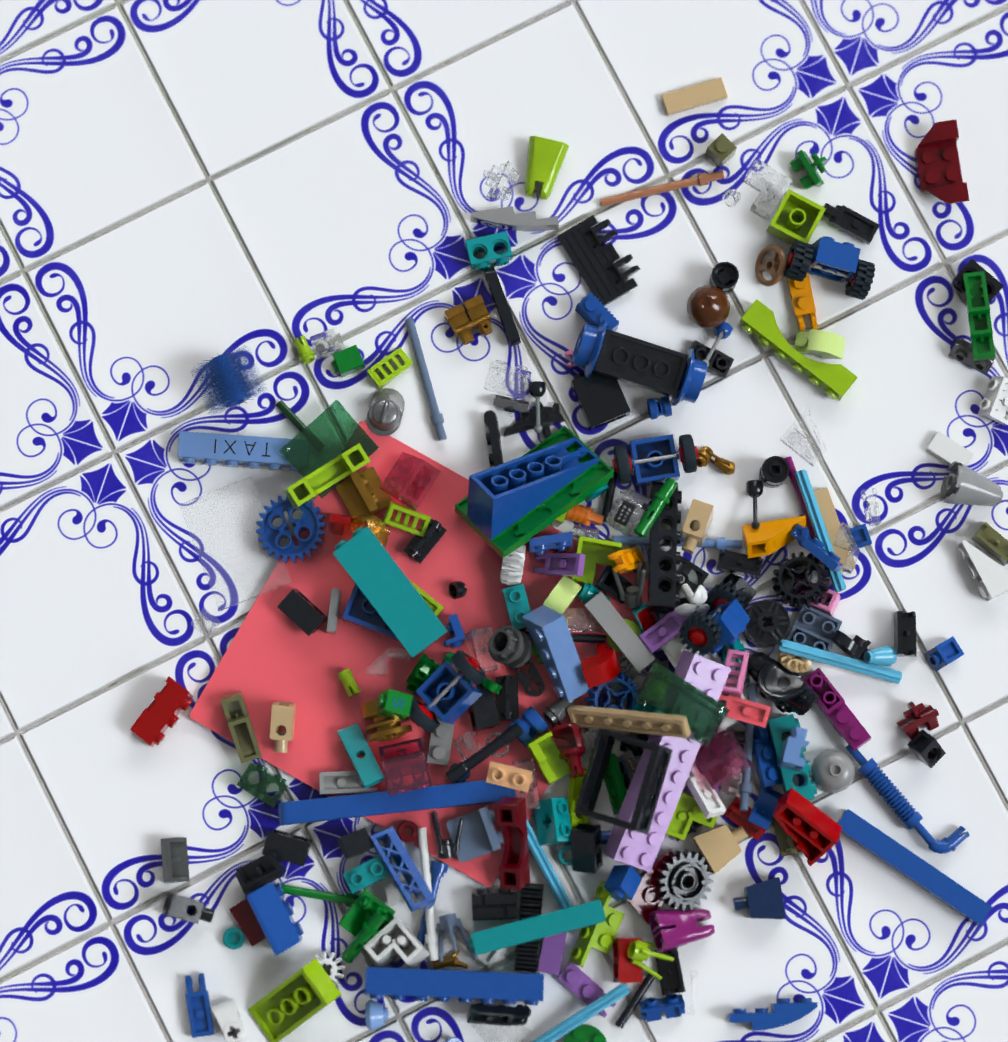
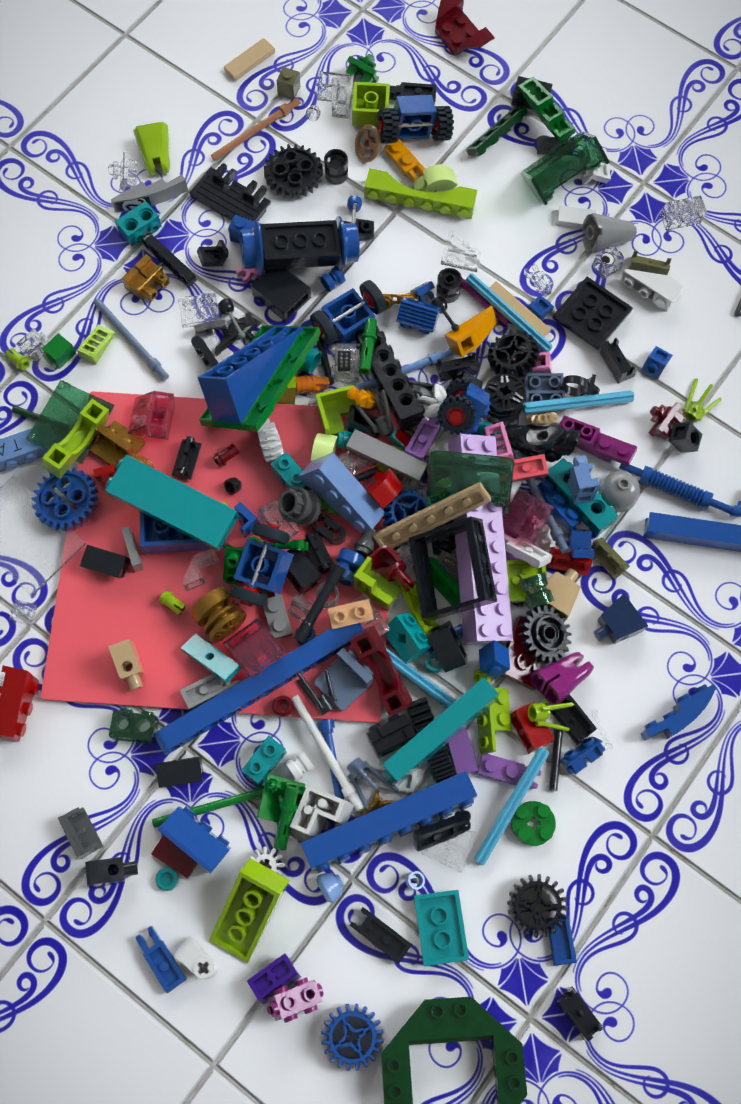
camera: 20 degrees left, 10 degrees down
(240, 727) = (91, 684): olive slope -> none
(260, 872) = (164, 804): black hinge -> none
(355, 843) = (240, 737): black slope -> none
(385, 412) = (108, 377): flat silver piece -> none
(394, 704) = (218, 593): green brick -> none
(404, 526) = (145, 447): lime slope -> none
(405, 866) = (296, 737): blue fence -> none
(464, 554) = (225, 455): none -> dark red pin
(549, 322) = (213, 255): none -> black bracket
(556, 541) = (292, 409): blue slope -> none
(561, 564) = (310, 423): medium lavender hinge -> none
(687, 276) = (293, 171): none -> black gear
(694, 837) = (540, 597): none -> clear green wheel
(696, 525) = (407, 352): tan torso -> none
(708, 307) = (334, 188): reddish brown piece -> none
(726, 491) = (418, 315): none -> blue brick
(746, 462) = (424, 289): none -> blue tile
(807, 825) = (625, 538): red wedge -> none
(815, 547) = (513, 323): blue hinge -> none
(846, 541) = (535, 310): clear slope -> none
(881, 656) = (609, 384): medium azure cone -> none
(907, 569) = (592, 313): none -> black plate
(917, 311) = (500, 128): none -> dark green plate
(953, 723) = (694, 410): none -> lime plant
(954, 520) = (608, 262): none -> clear brick
(958, 388) = (562, 164): none -> clear green windscreen

